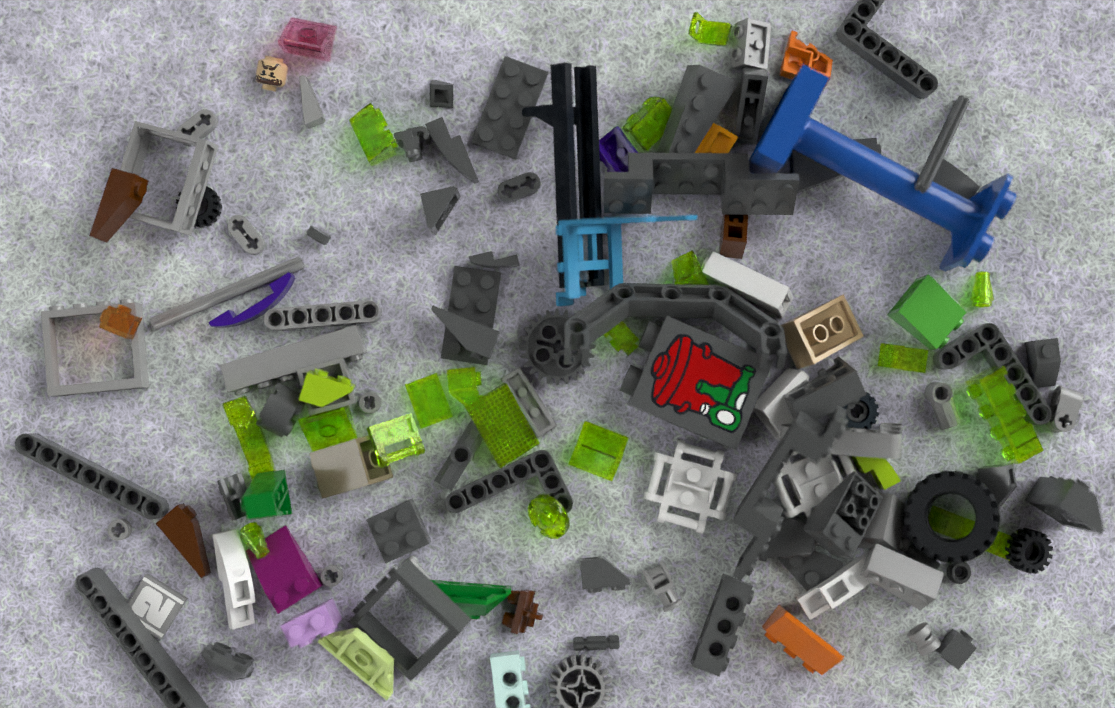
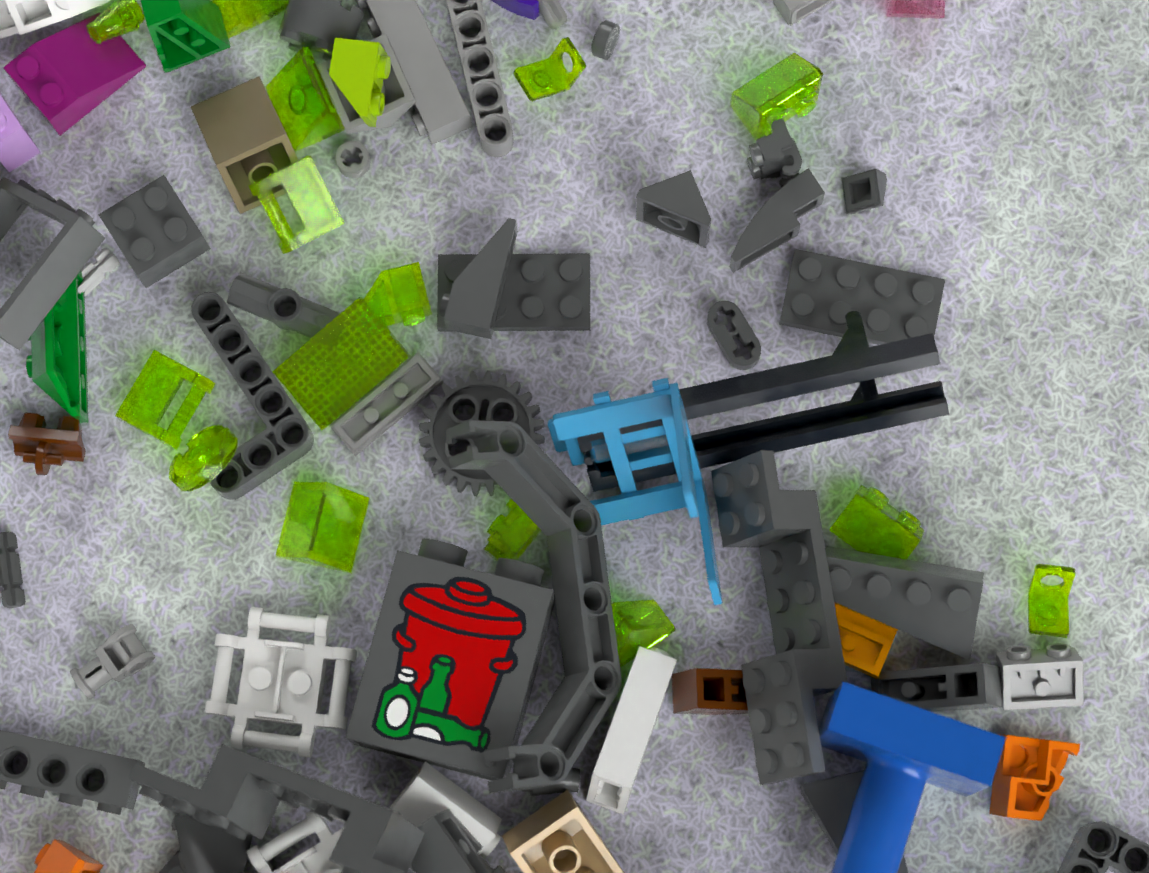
camera: 85 degrees right, 10 degrees down
(334, 273) = (550, 75): none -> clear neon green bracket
(334, 568) = (62, 144): light grey bush -> none
(429, 400) = (368, 248): clear neon green plate -> none
(487, 260) = (607, 305): dark grey slope -> none
(500, 542) = (154, 393): none -> clear neon green plate
(601, 573) = (122, 559): dark grey slope -> none
(615, 149) = (821, 470): dark purple bracket -> none

